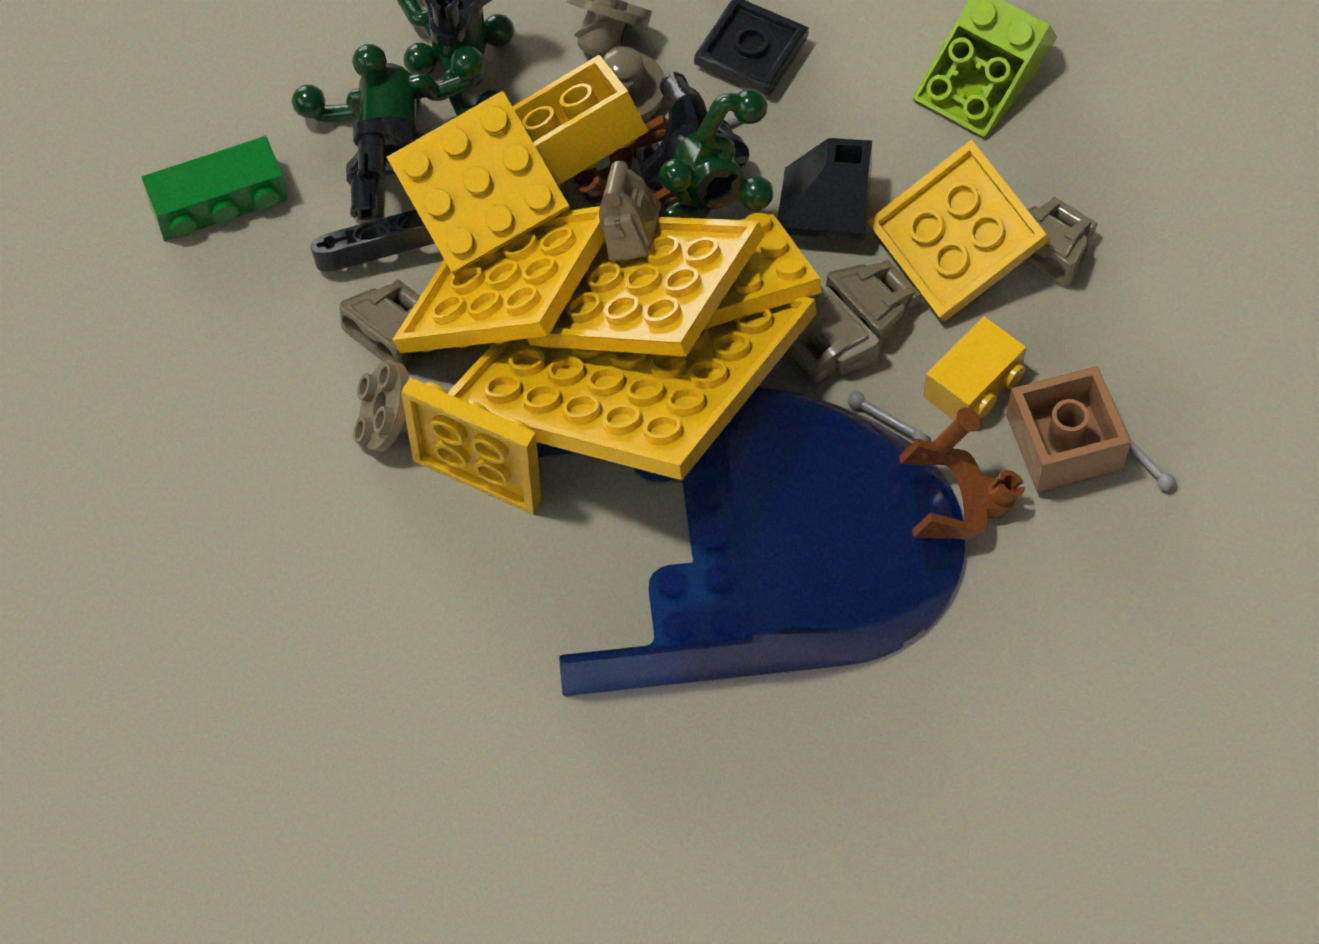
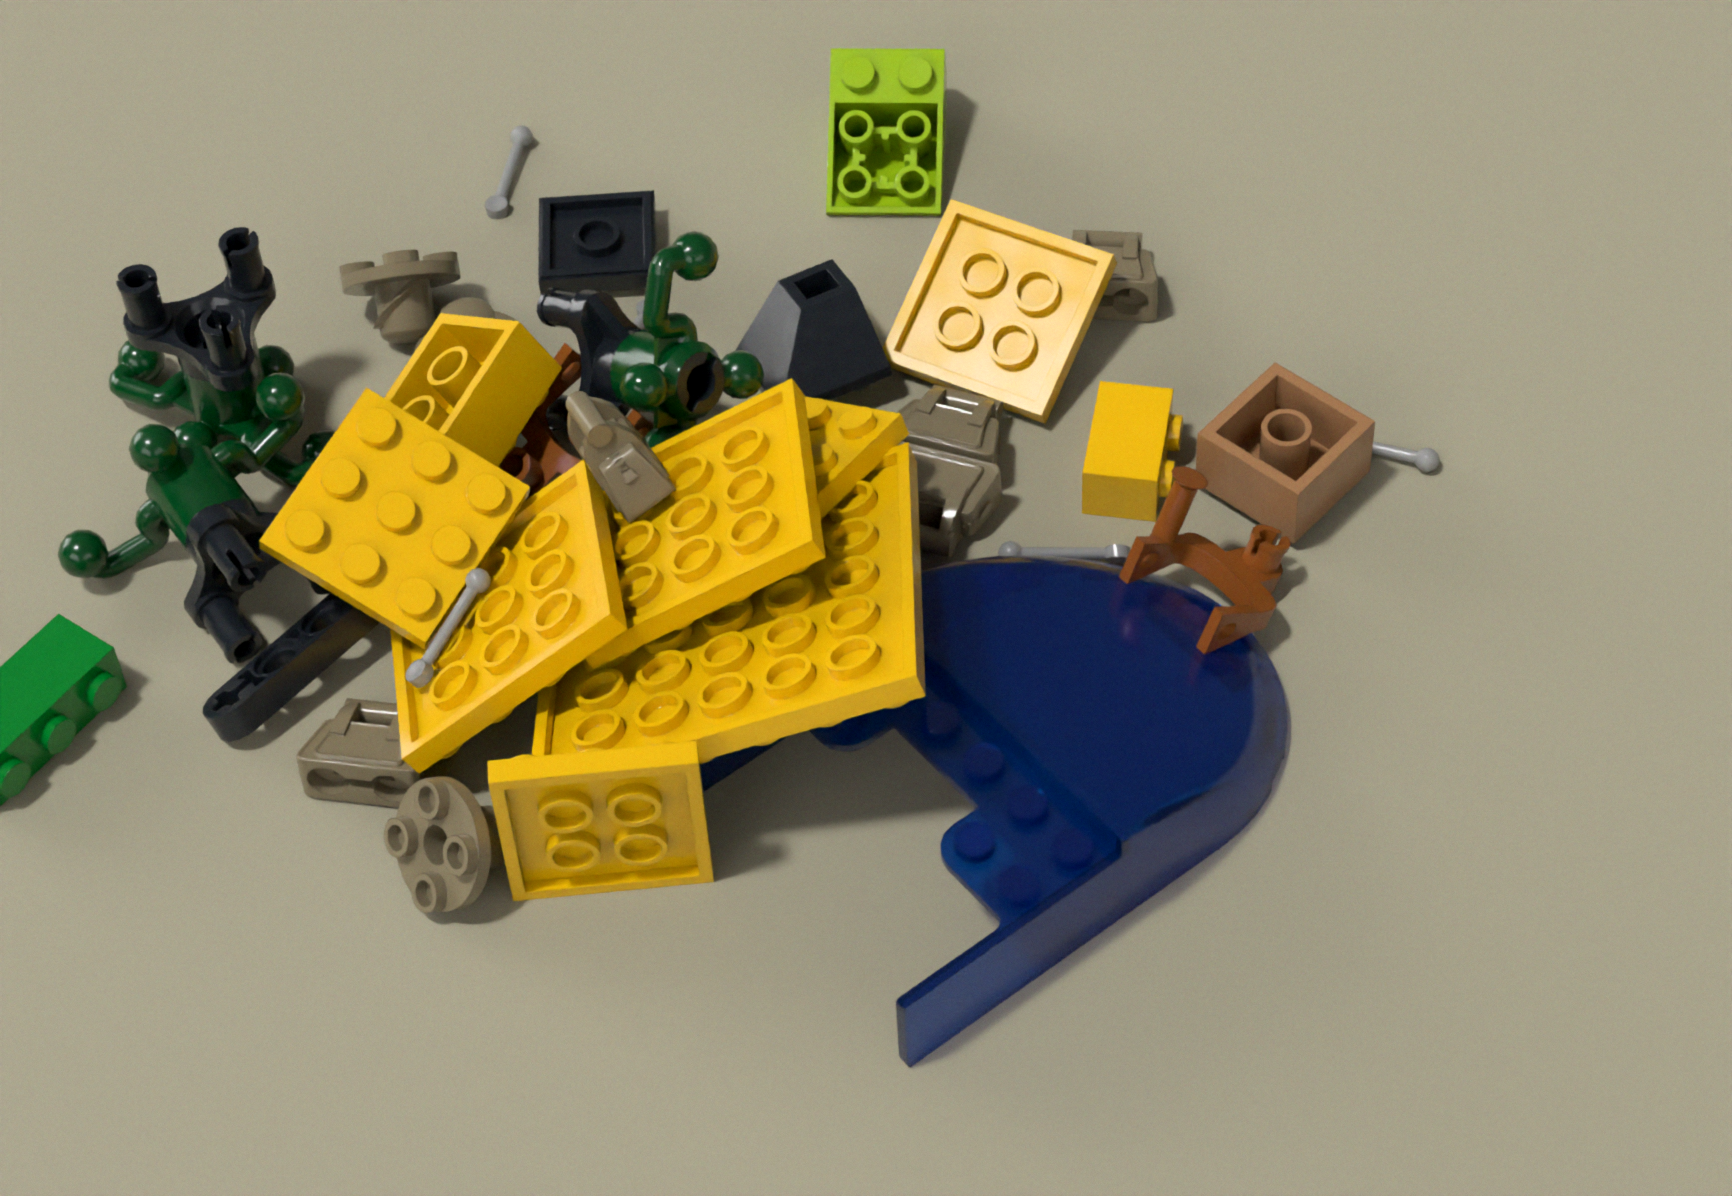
camera: 30 degrees left, 10 degrees down
(440, 288) = (421, 670): none -> light grey hinge

